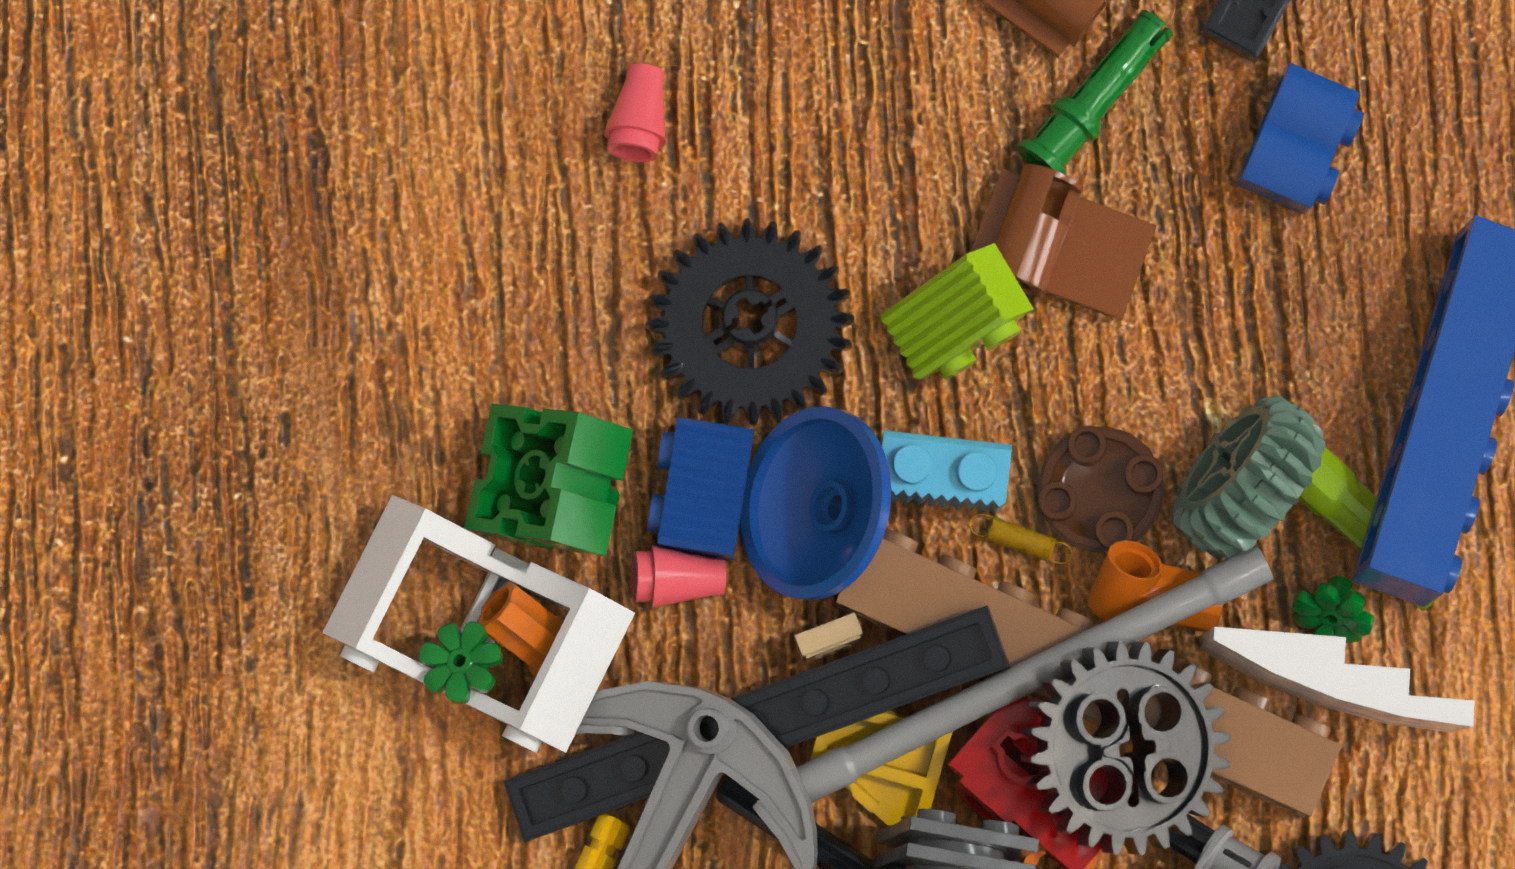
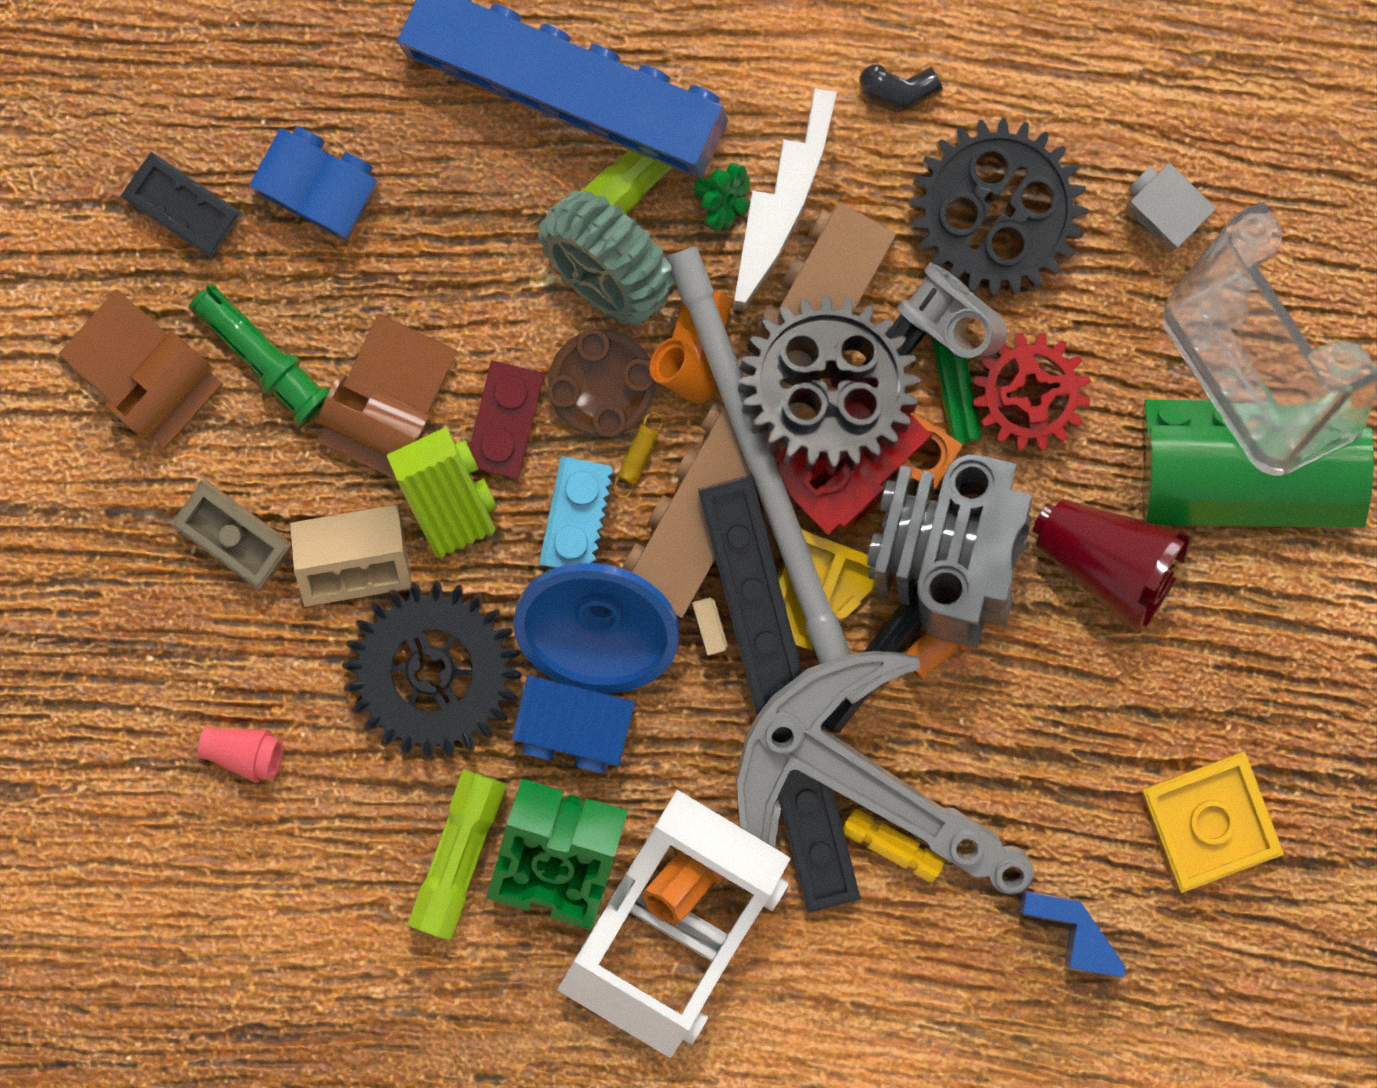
camera: 90 degrees left, 5 degrees up
(460, 661) = (707, 941): green plant -> none
(519, 363) = (456, 856): none -> lime axle
(675, 576) = (646, 752): coral cone -> none
(874, 217) = (350, 555): none -> tan brick
(885, 82) = (232, 534): none -> dark tan brick
(1047, 382) = (505, 419): none -> dark red plate
(1476, 804) = (895, 92): none -> black arm

